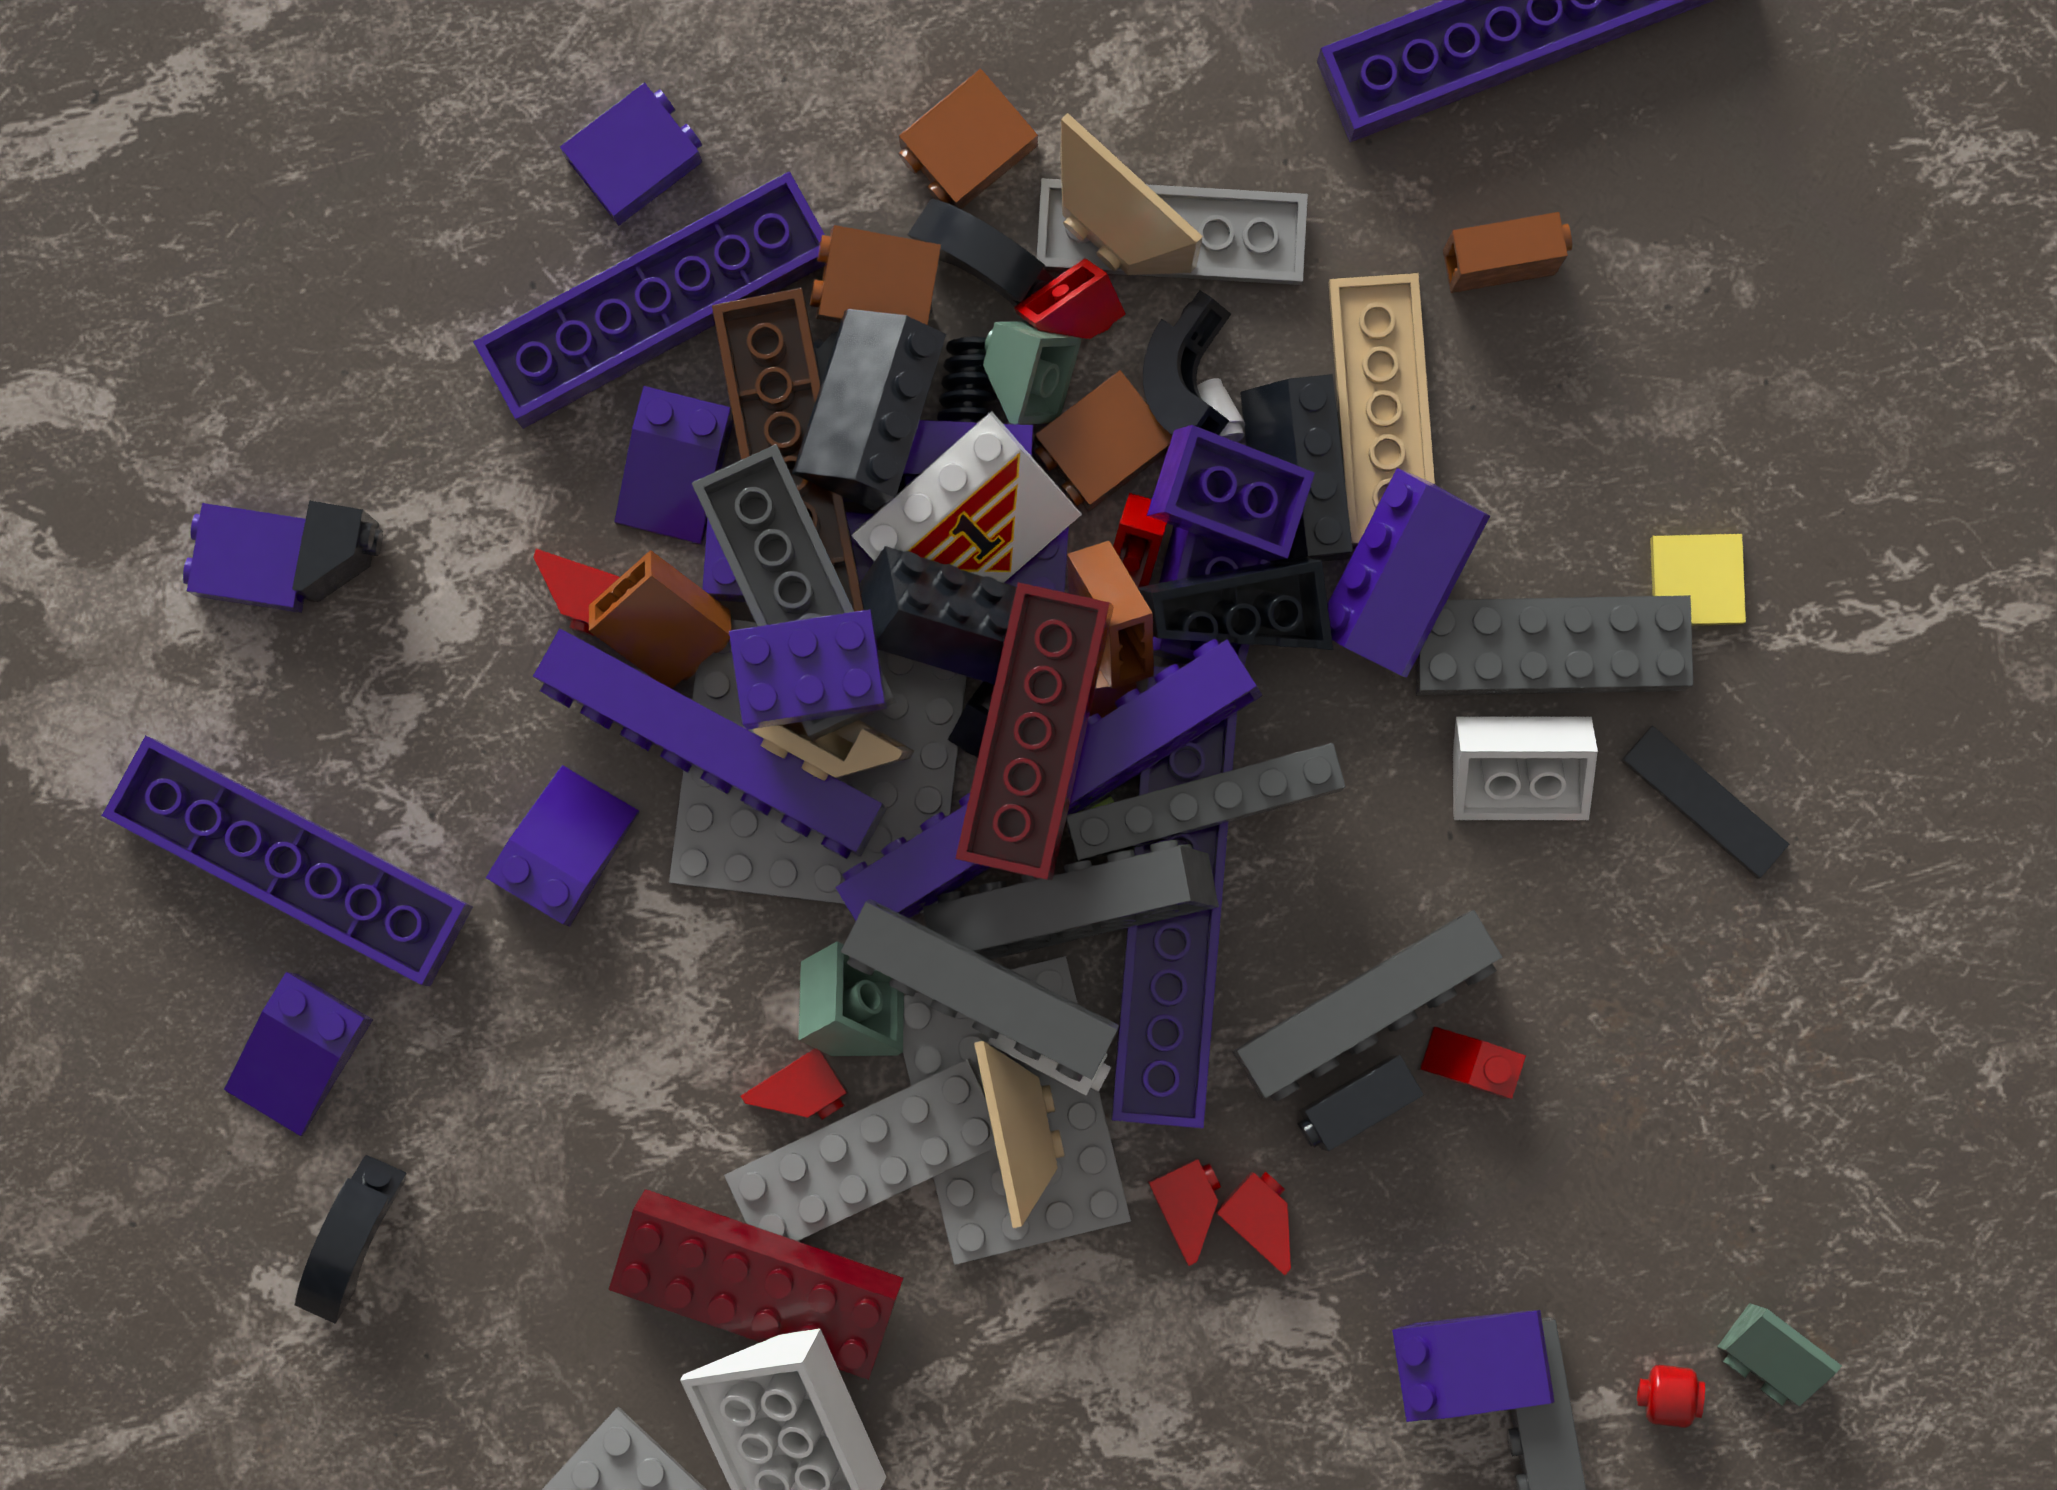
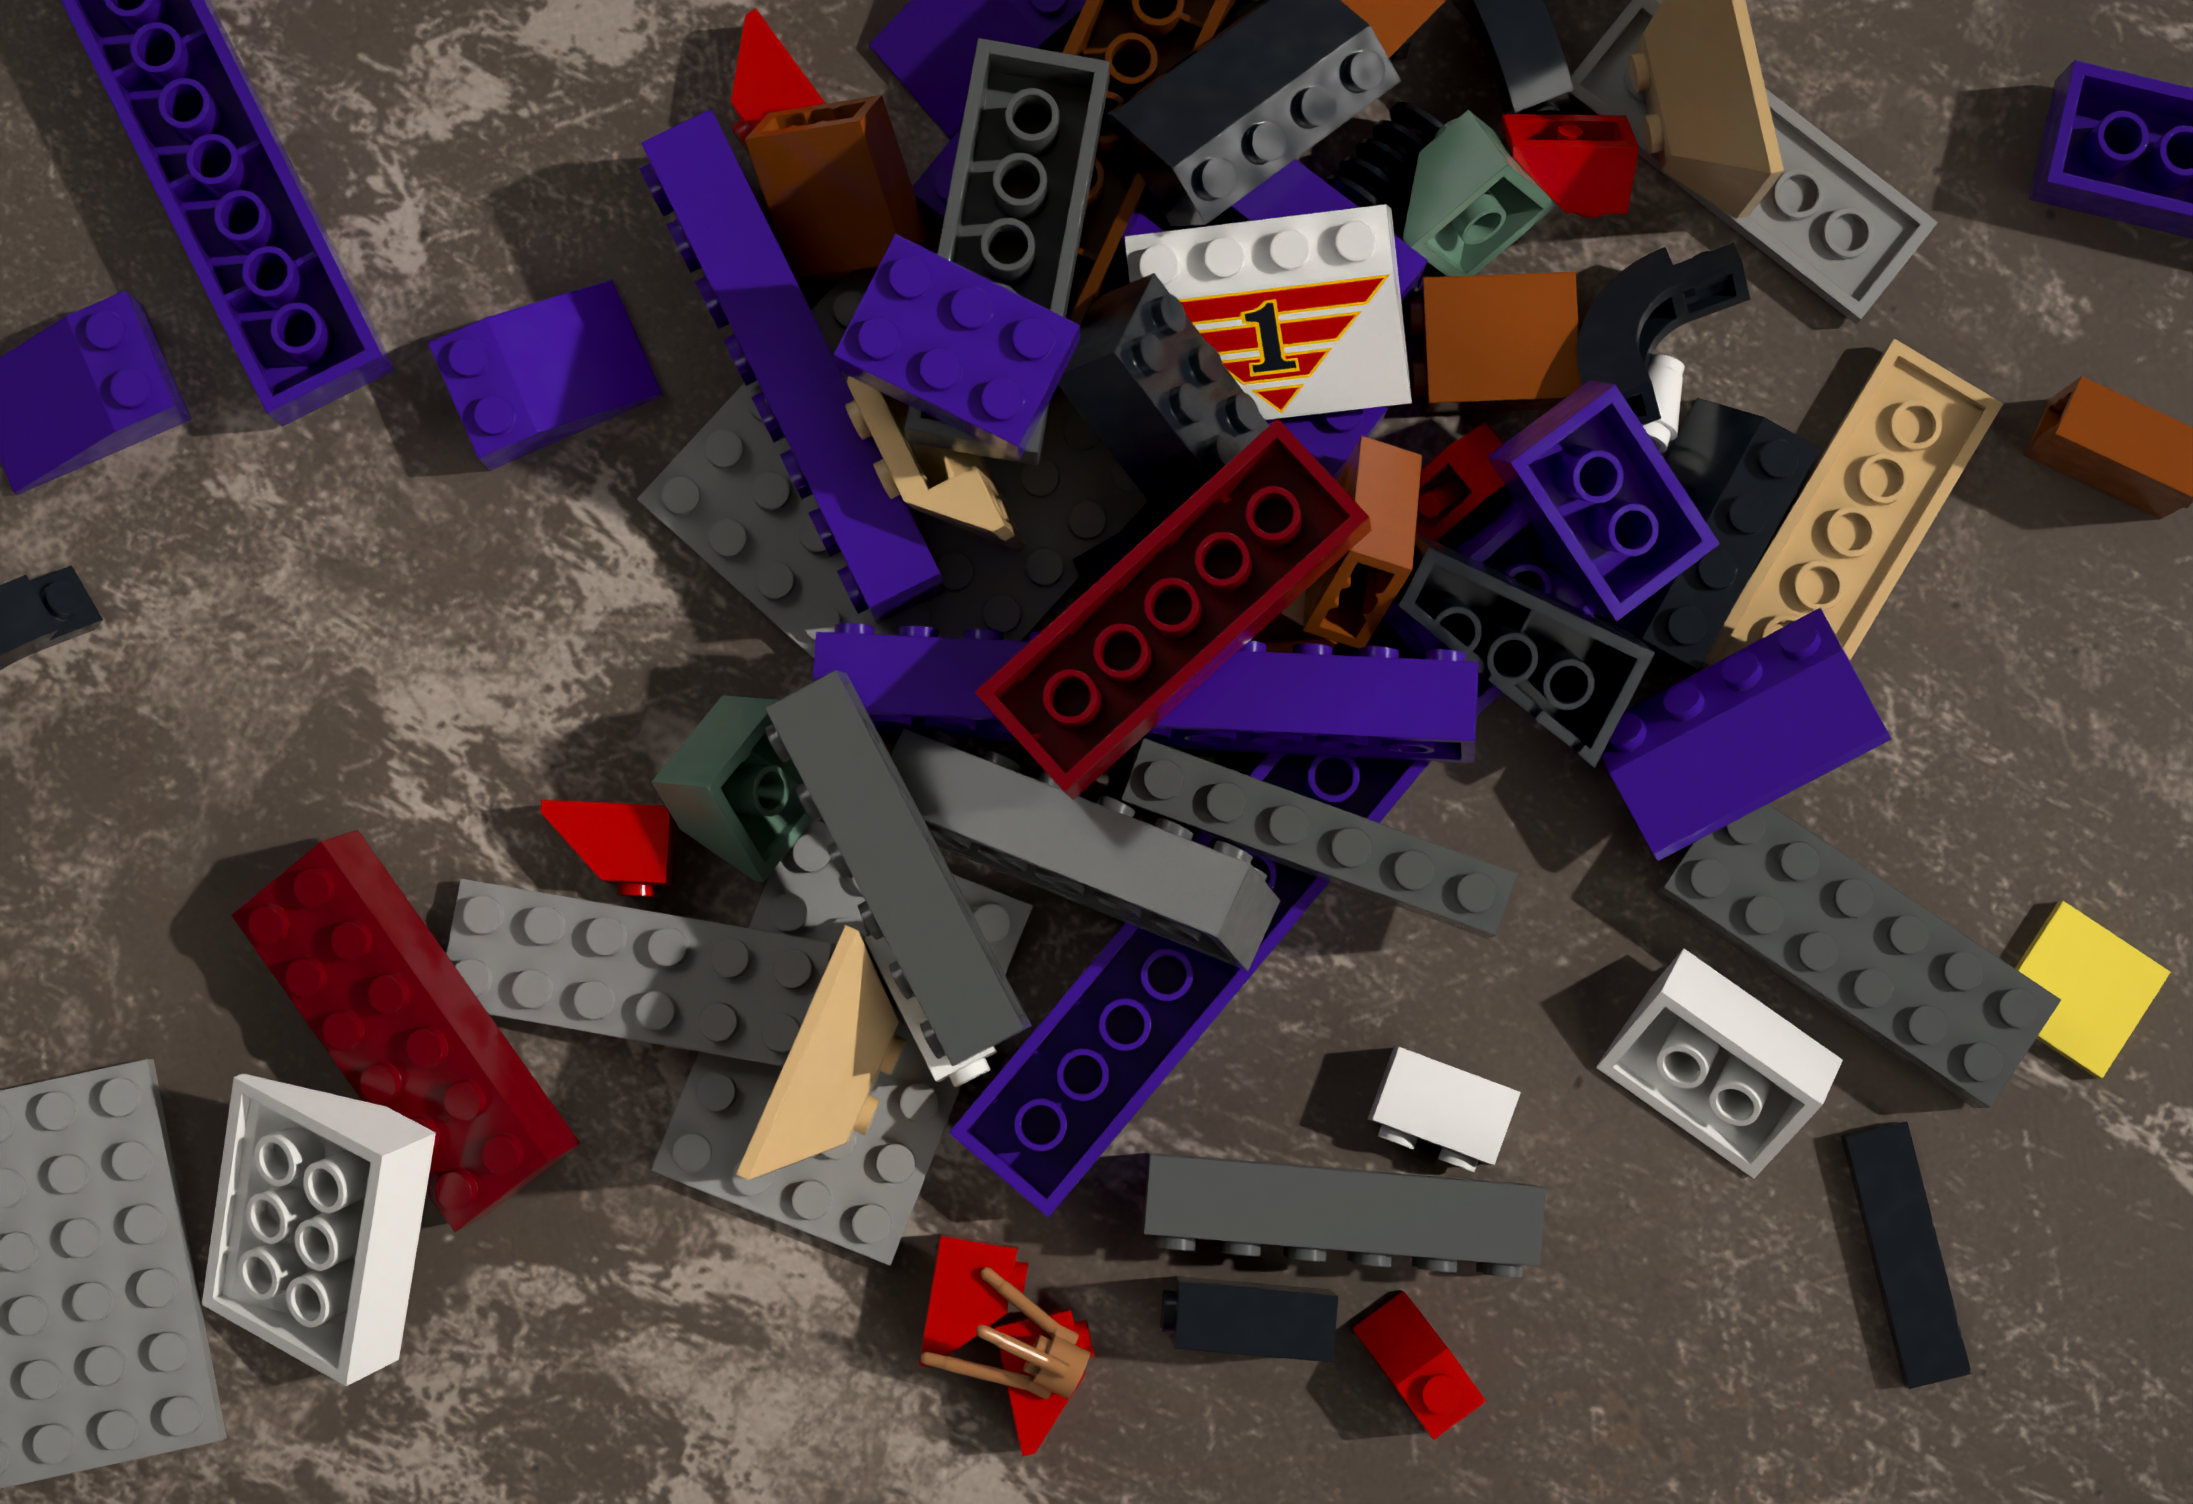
camera: 30 degrees right, 0 degrees up
(1265, 1209) = (1053, 1363): none -> medium nougat plant
(1383, 905) = (1443, 1108): none -> white brick

